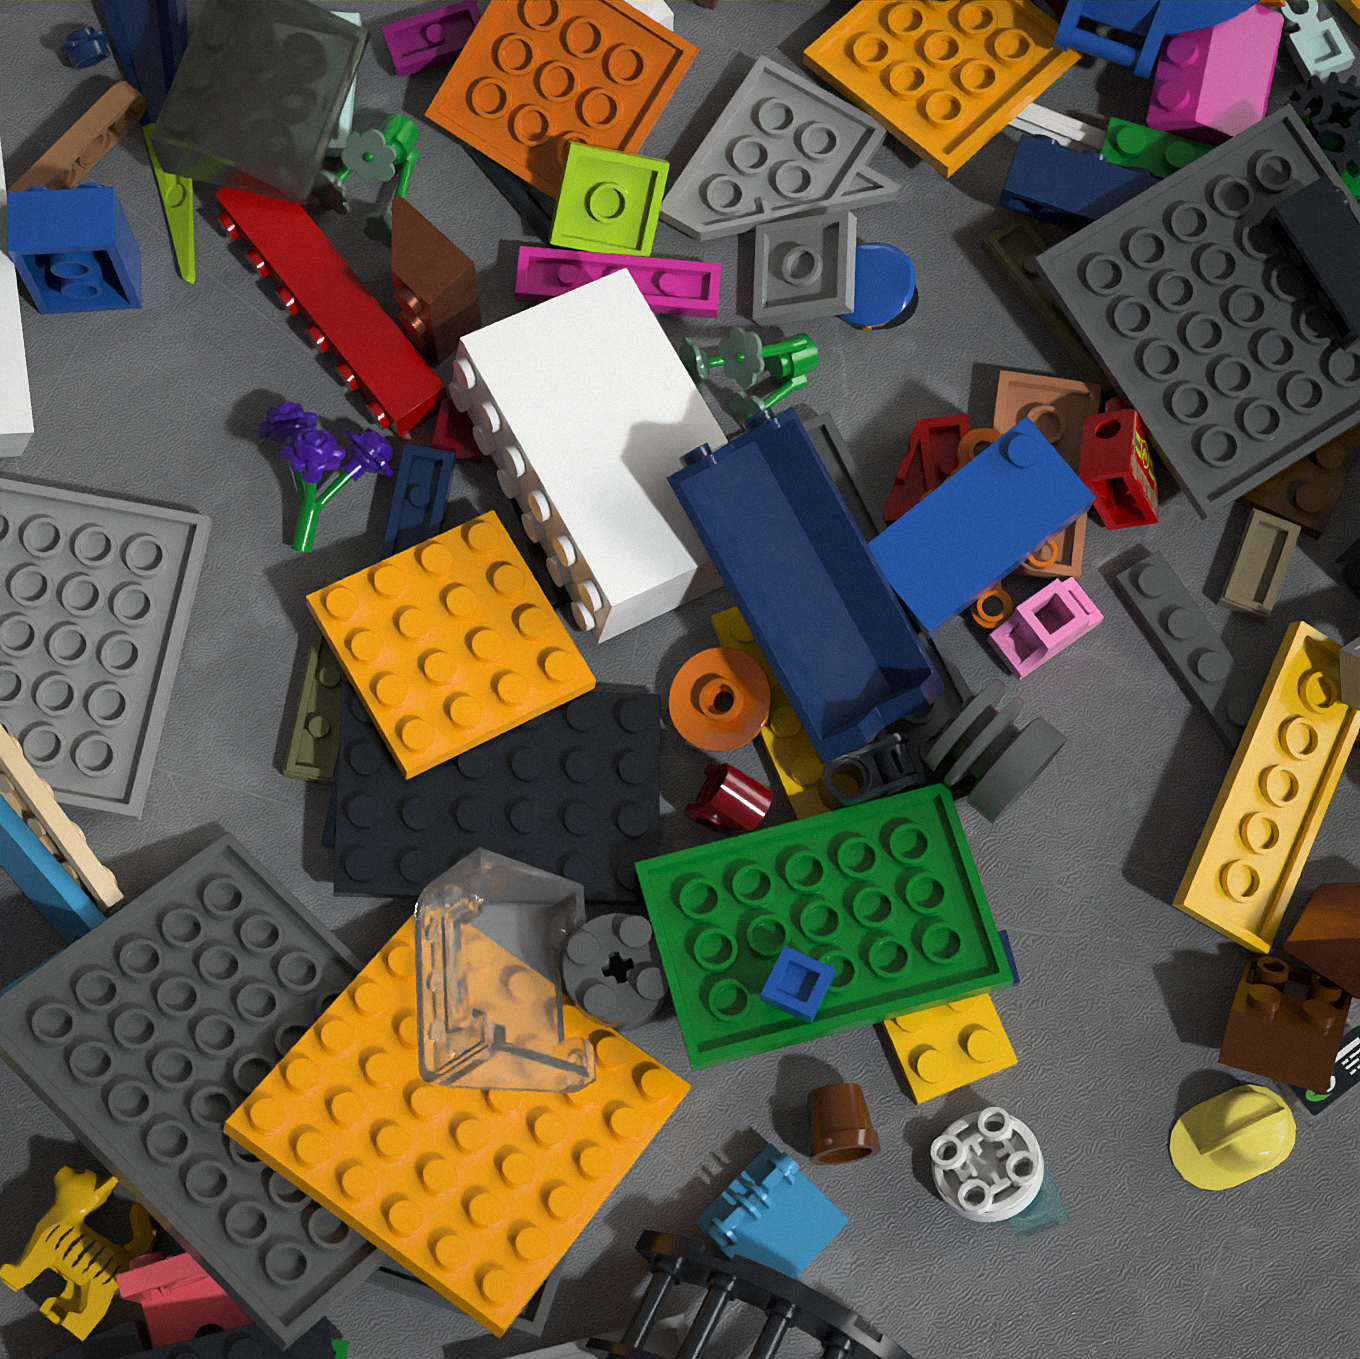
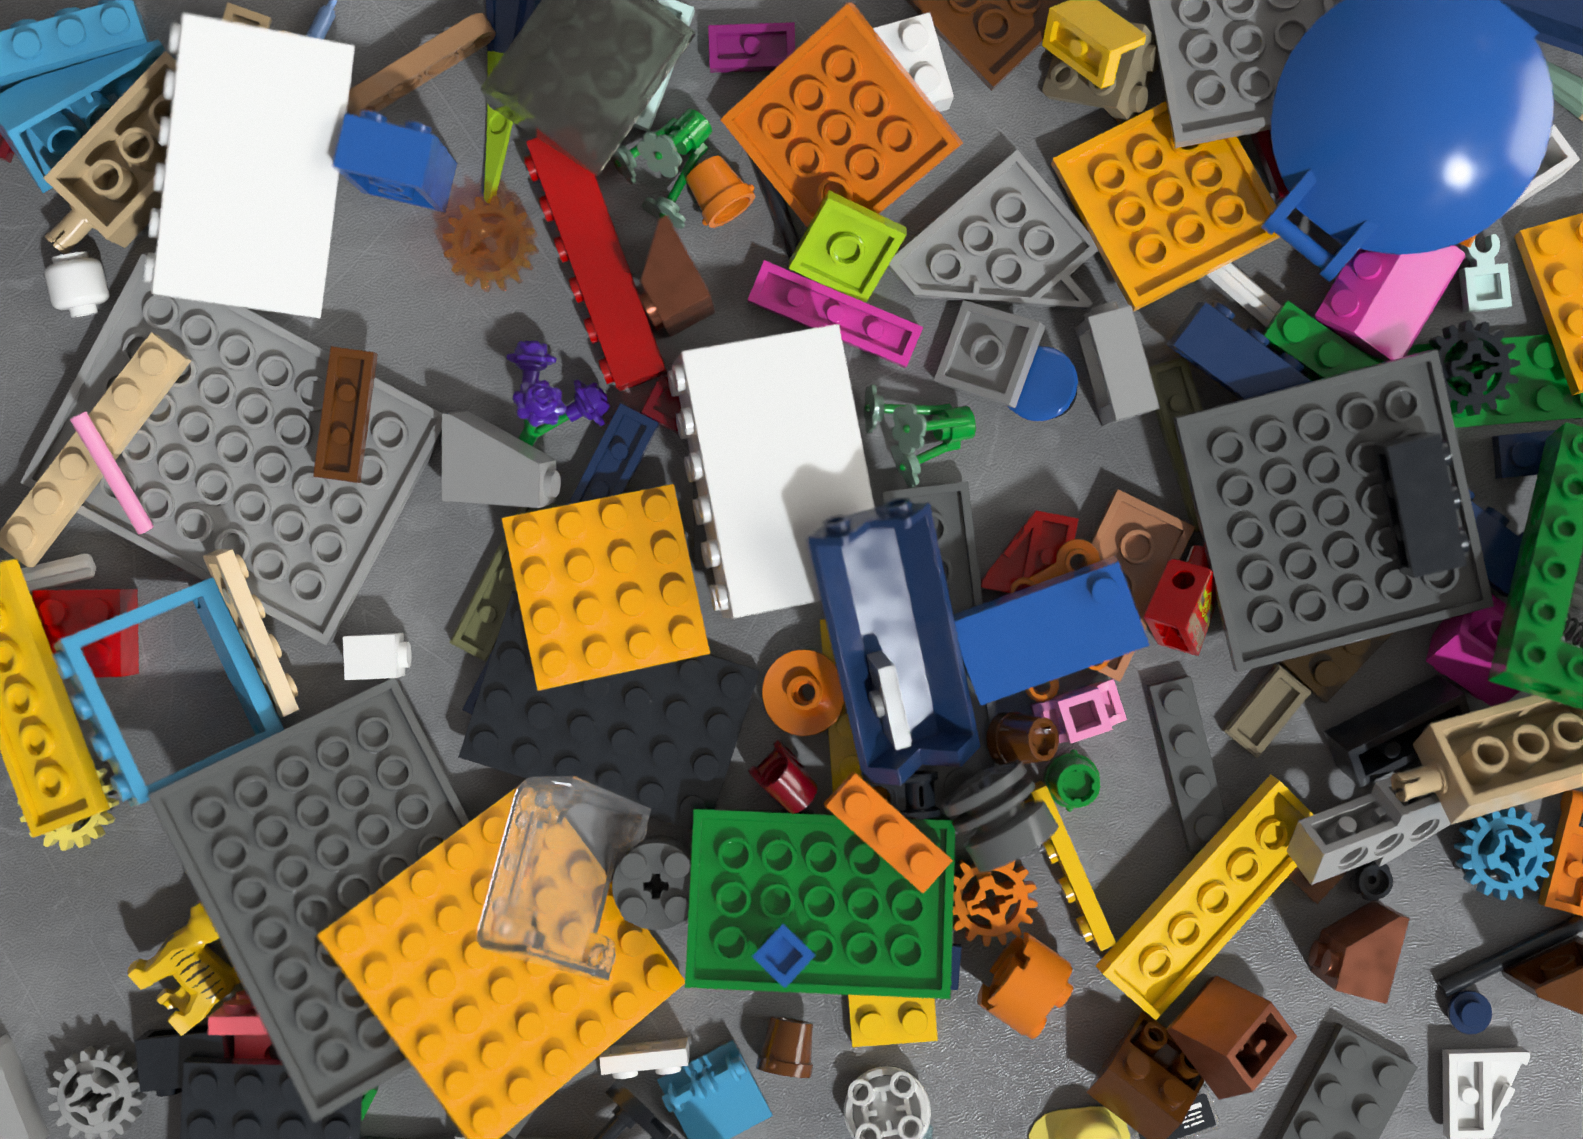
camera: 20 degrees right, 15 degrees up
(89, 543) = (345, 414): none -> reddish brown plate
(199, 812) = (375, 656): none -> white brick
(206, 339) = (503, 232): none -> clear orange gear
(278, 552) = (493, 466): none -> light grey slope
(447, 191) = (719, 191): none -> orange piece
(649, 1204) = (627, 1059): none -> white plate
(821, 654) = (887, 700): none -> plate
(872, 807) = (887, 832): none -> orange plate
(949, 235) = (1115, 363): none -> light grey window
(999, 657) = (1021, 738): none -> reddish brown piece
(1032, 888) = (1008, 893): none -> orange gear
(1070, 705) = (1072, 780): none -> green piece
(1099, 950) = (1026, 985): none -> orange brick
(1113, 819) = (1075, 882): none -> yellow plate

